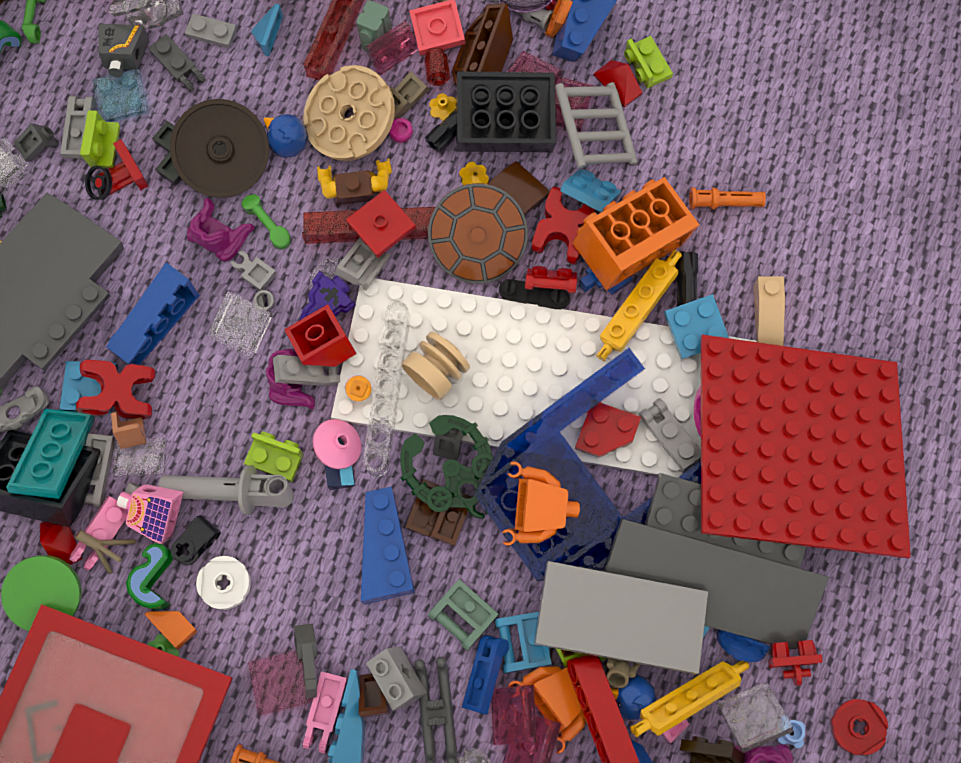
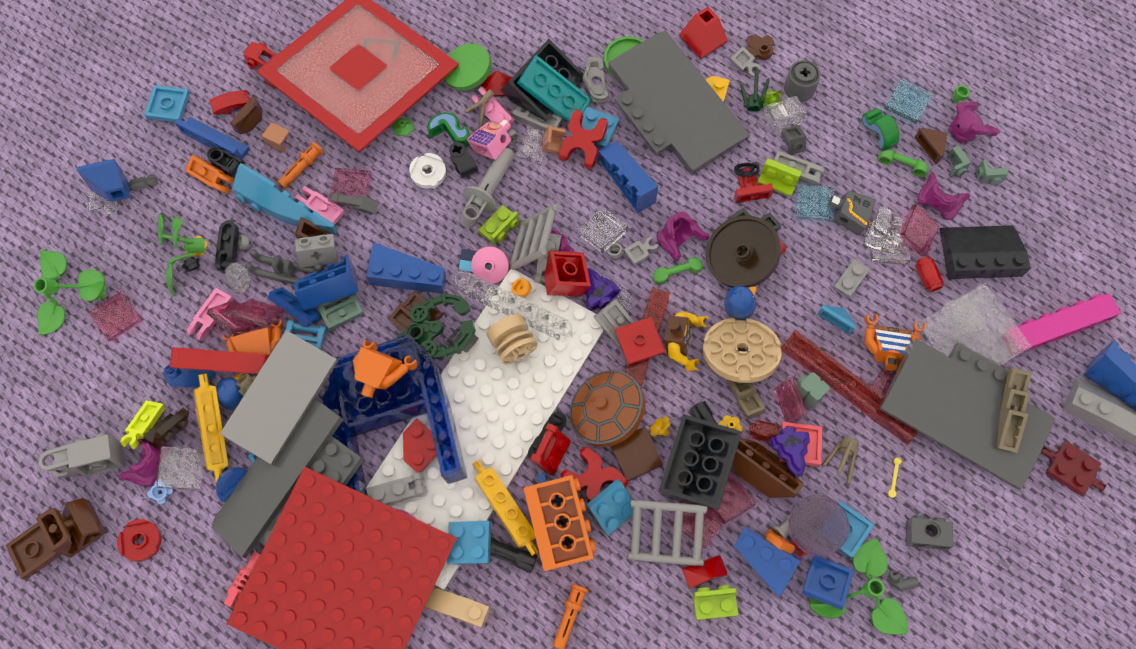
camera: 105 degrees right, 5 degrees down
(172, 626) = (413, 135): orange tile -> none
(175, 61) = (831, 247): dark grey hinge -> none
(259, 406) = (529, 224): none -> light grey bar
(401, 130) = (720, 387): dark pink tile -> none
(442, 634) = (327, 285): none -> blue wedge
(451, 27) = (792, 448): none -> dark purple rock
(807, 656) = (200, 513): red hips -> none
(847, 571) = (241, 579): none -> coral hinge

